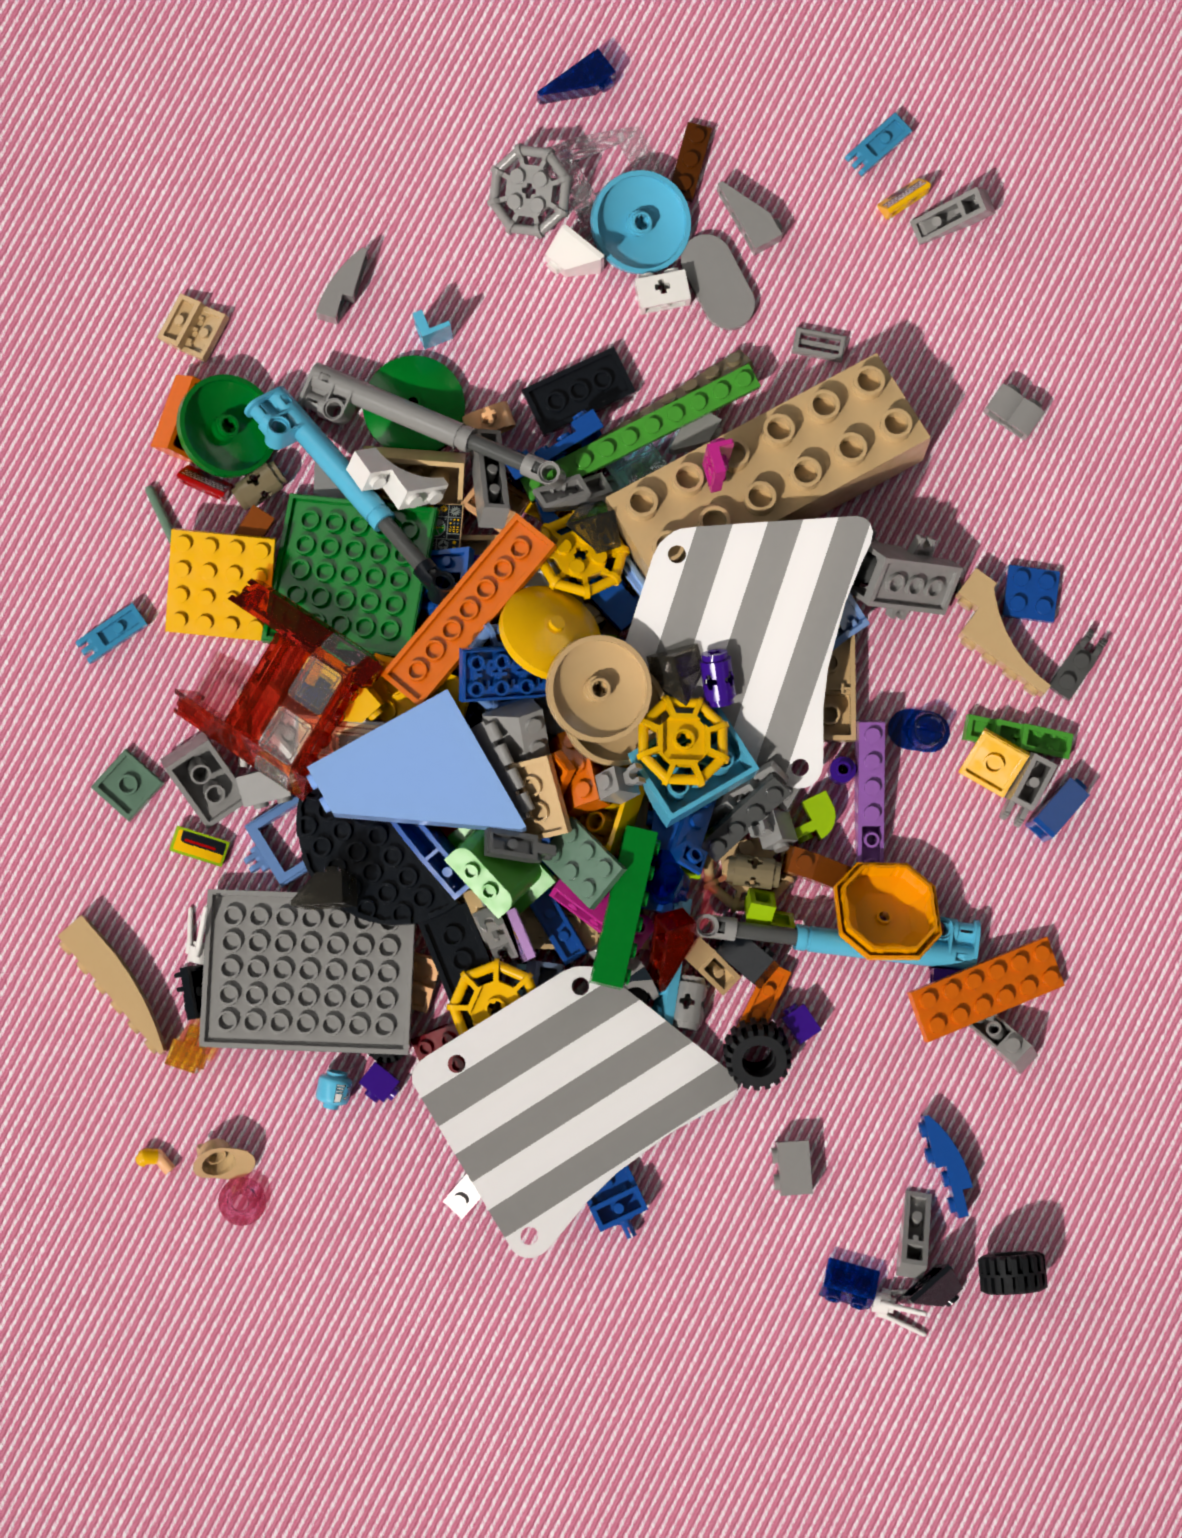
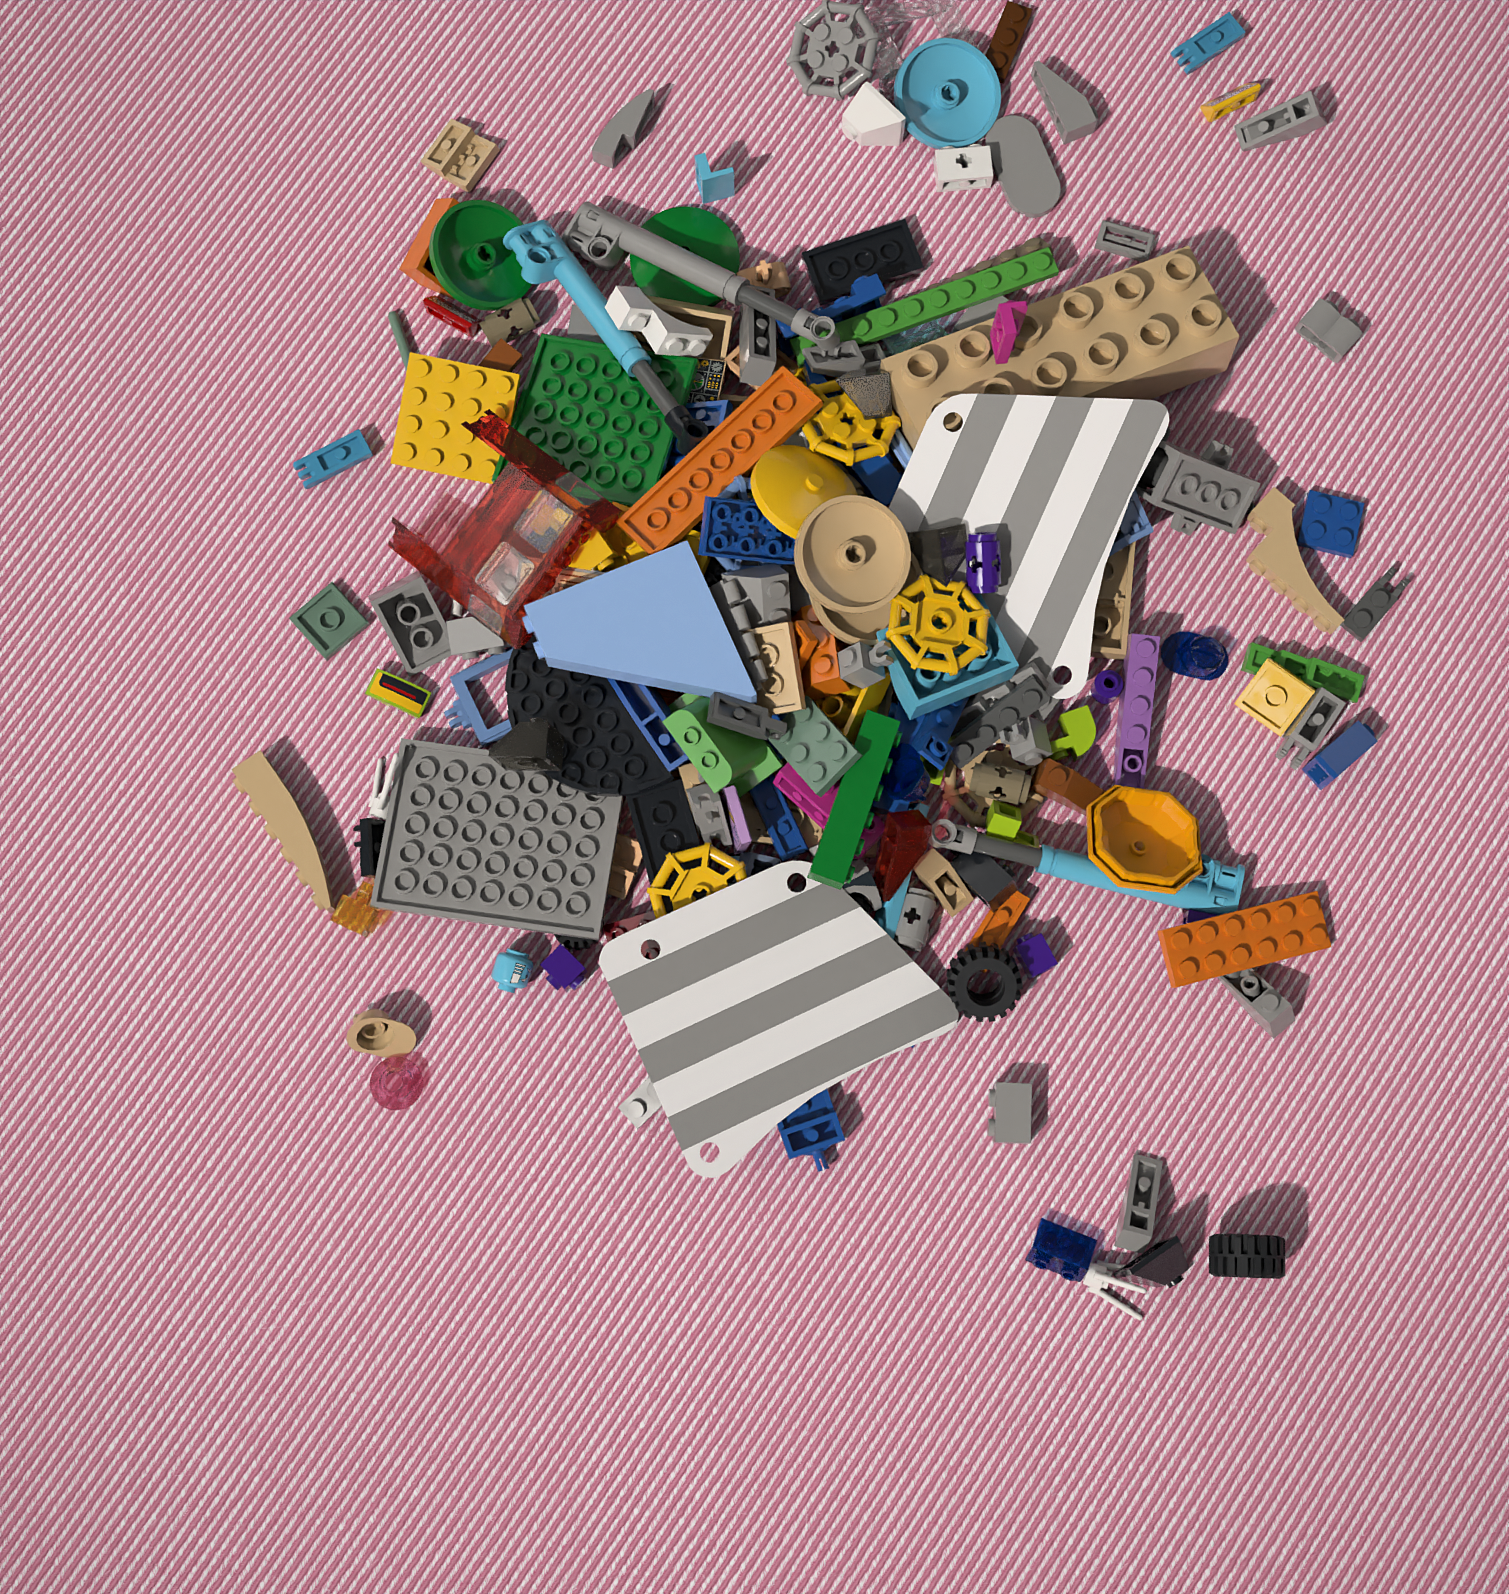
camera: 10 degrees right, 5 degrees down
(155, 1156) = (308, 1023): arm -> none
(944, 1154) = (1181, 1116): blue slope -> none

